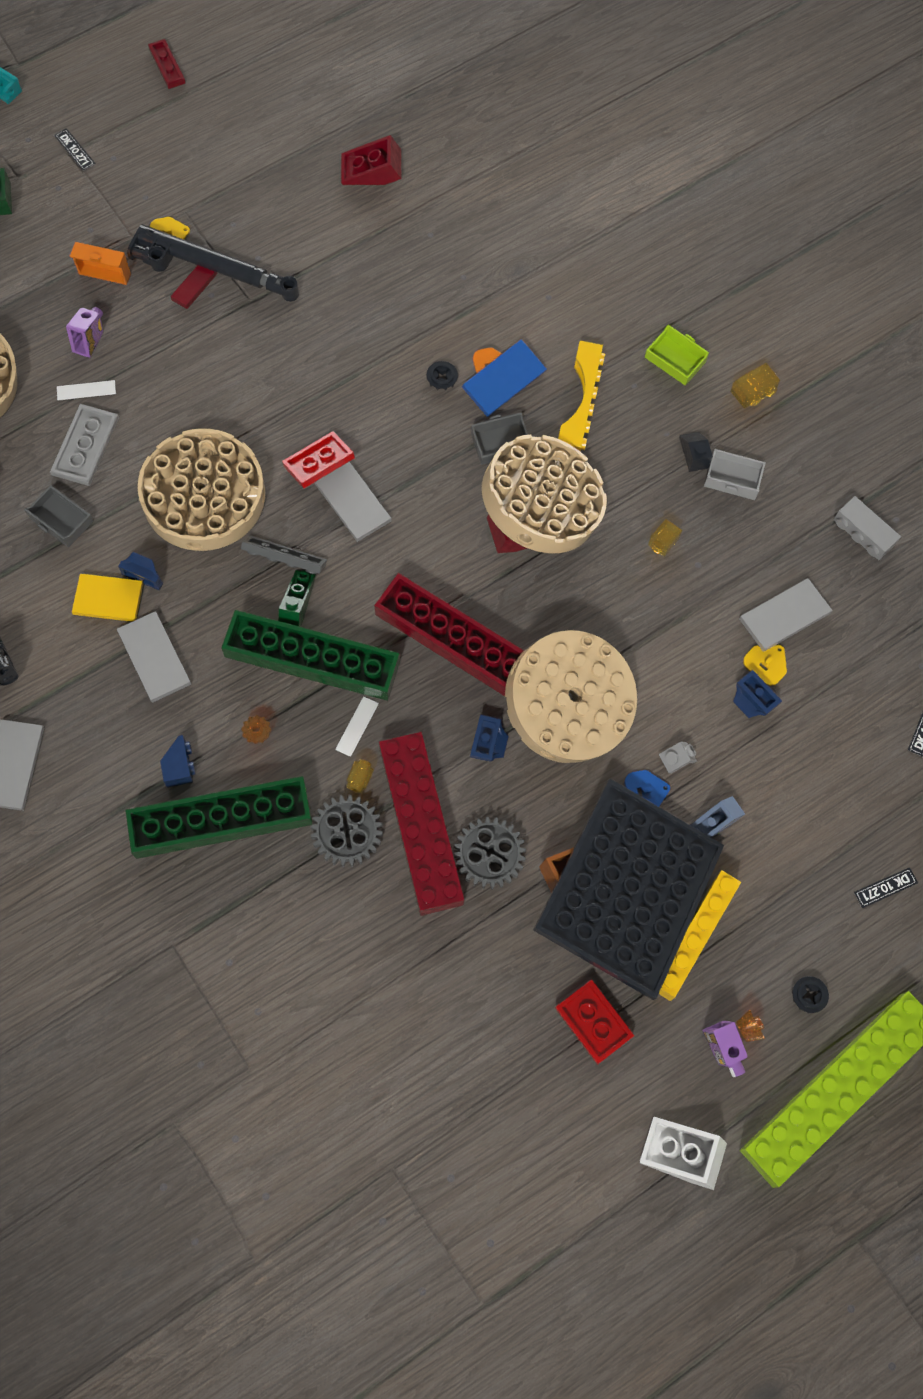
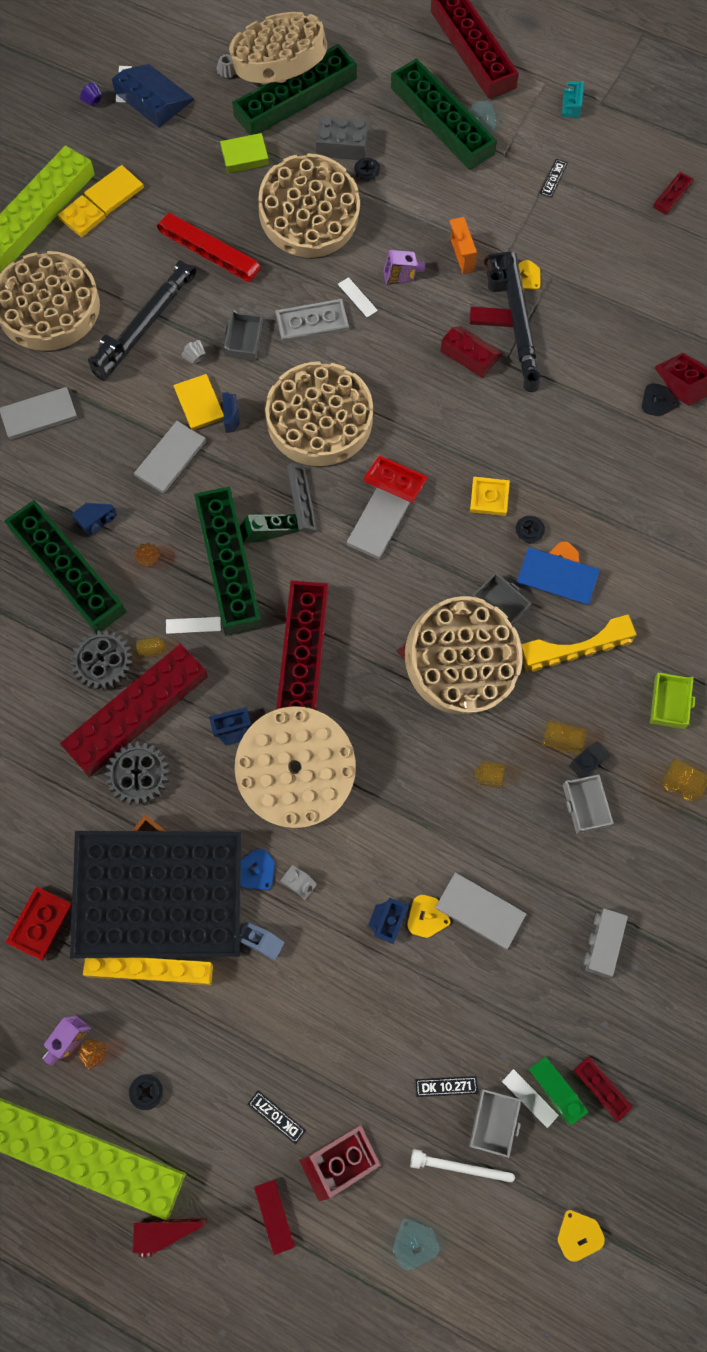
camera: 65 degrees right, 0 degrees up
(47, 572) = (193, 352): none -> light grey piece
(220, 323) = (469, 351): none -> dark red slope
(379, 196) = (663, 401): none -> black piece
(387, 390) = (489, 496): none -> yellow plate
(664, 458) = (564, 737): none -> clear yellow brick

